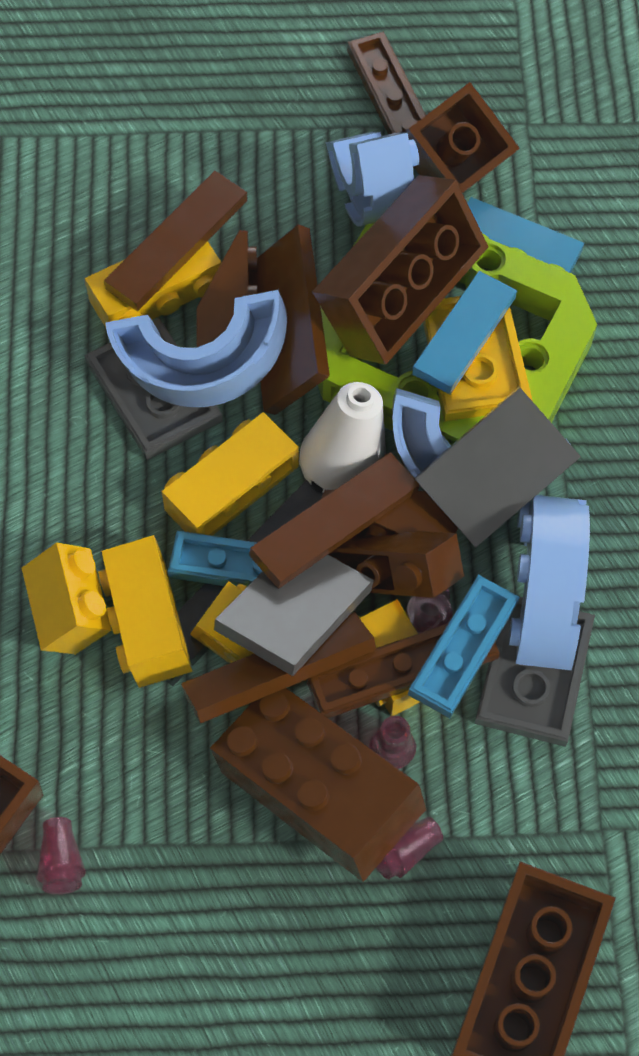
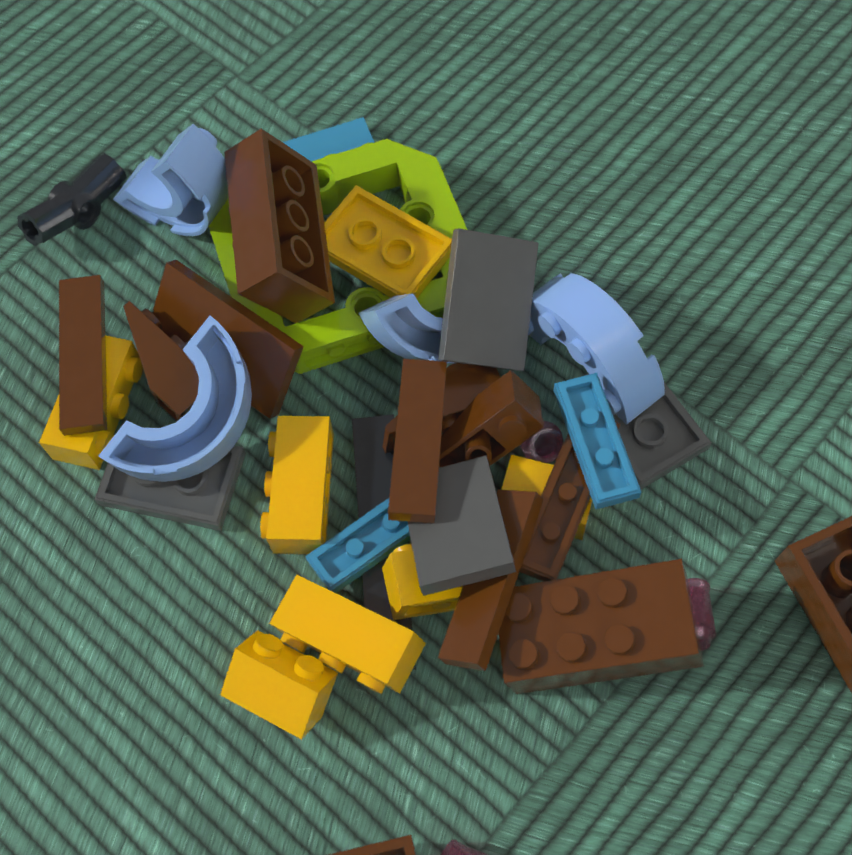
camera: 40 degrees left, 0 degrees up
(293, 119) = (74, 202): none -> black piece
(344, 437) = (359, 382): white cone -> none
(385, 82) = (115, 127): tile -> none
(396, 751) = (609, 551): clear pink cone -> none
(461, 139) = (215, 104): reddish brown brick -> none
(464, 332) = (363, 235): dark azure tile -> none

